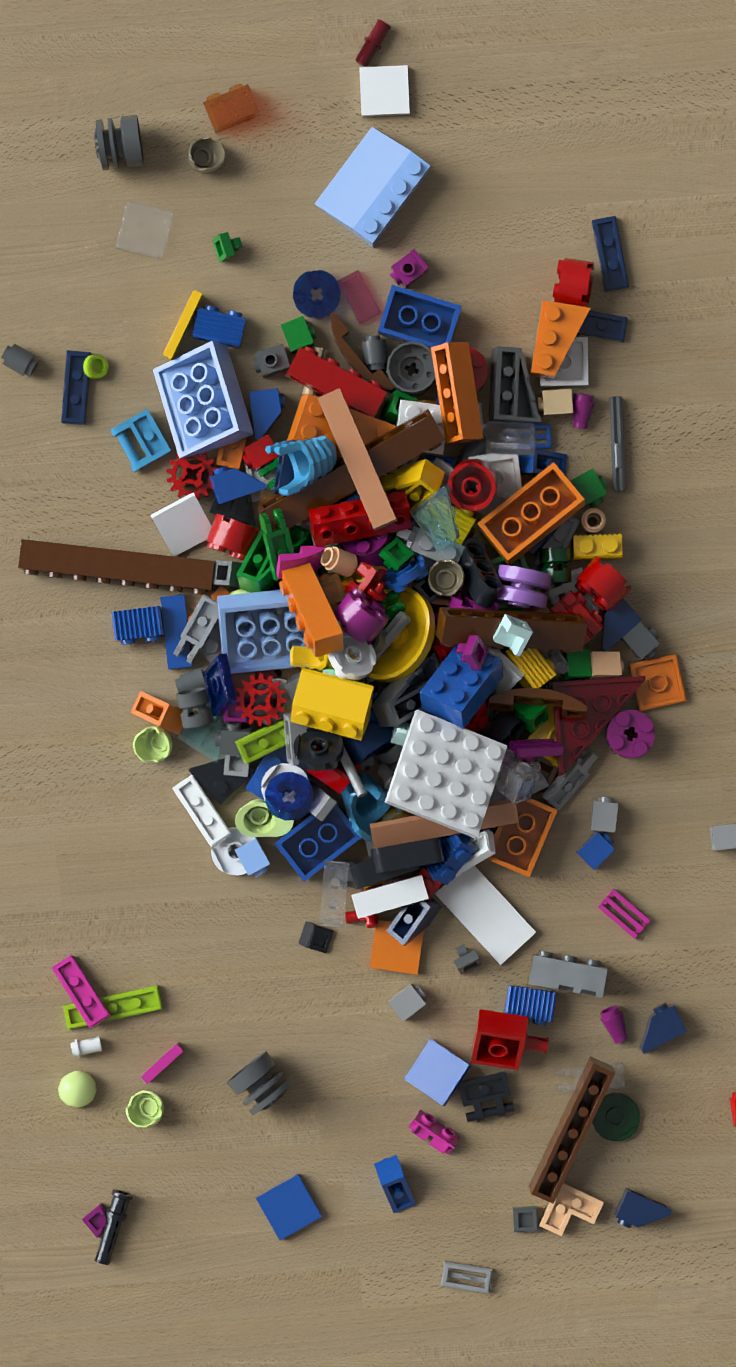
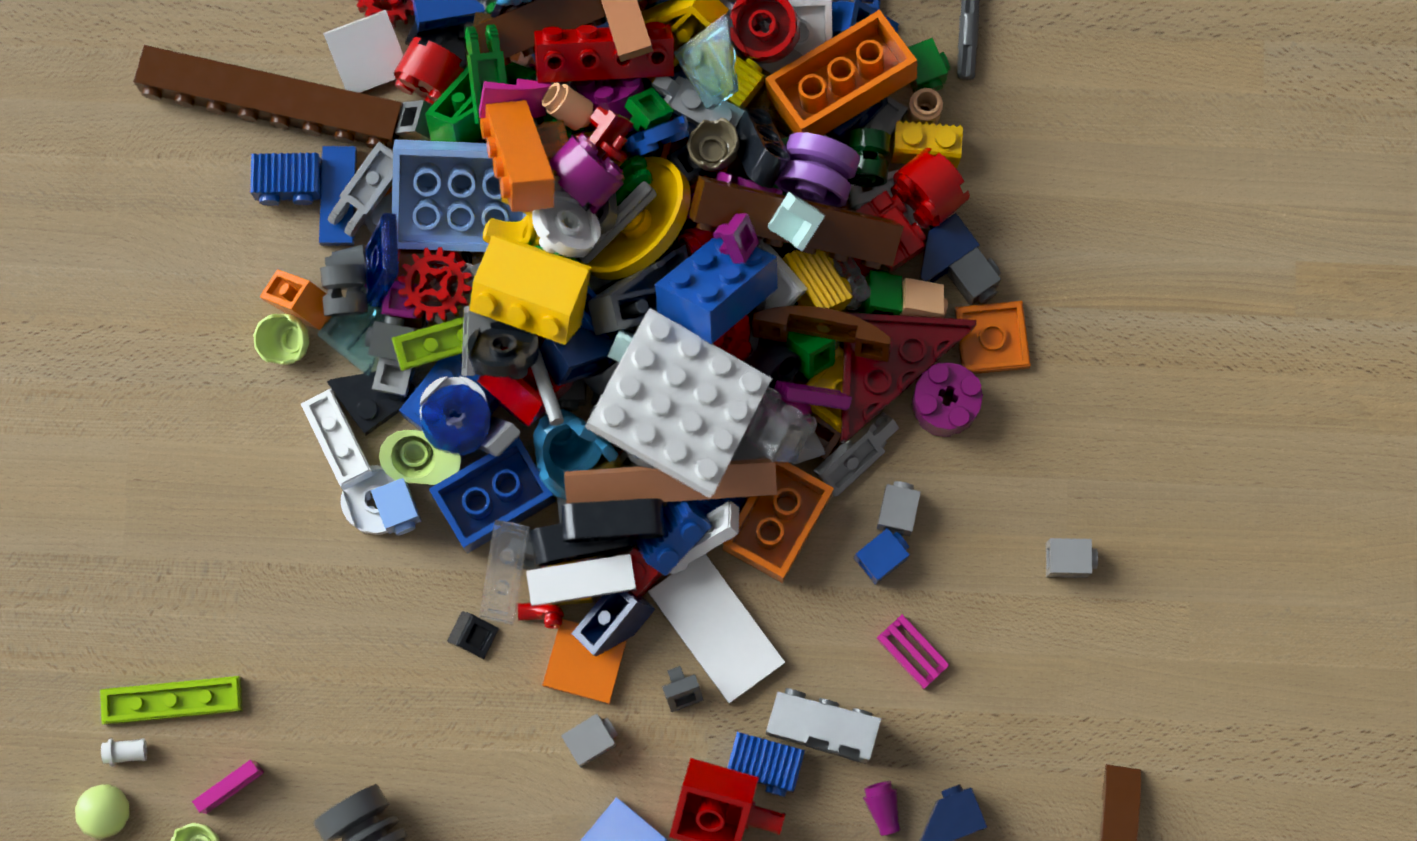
camera: 10 degrees right, 10 degrees down
(81, 992) = (128, 671): dark pink tile -> none

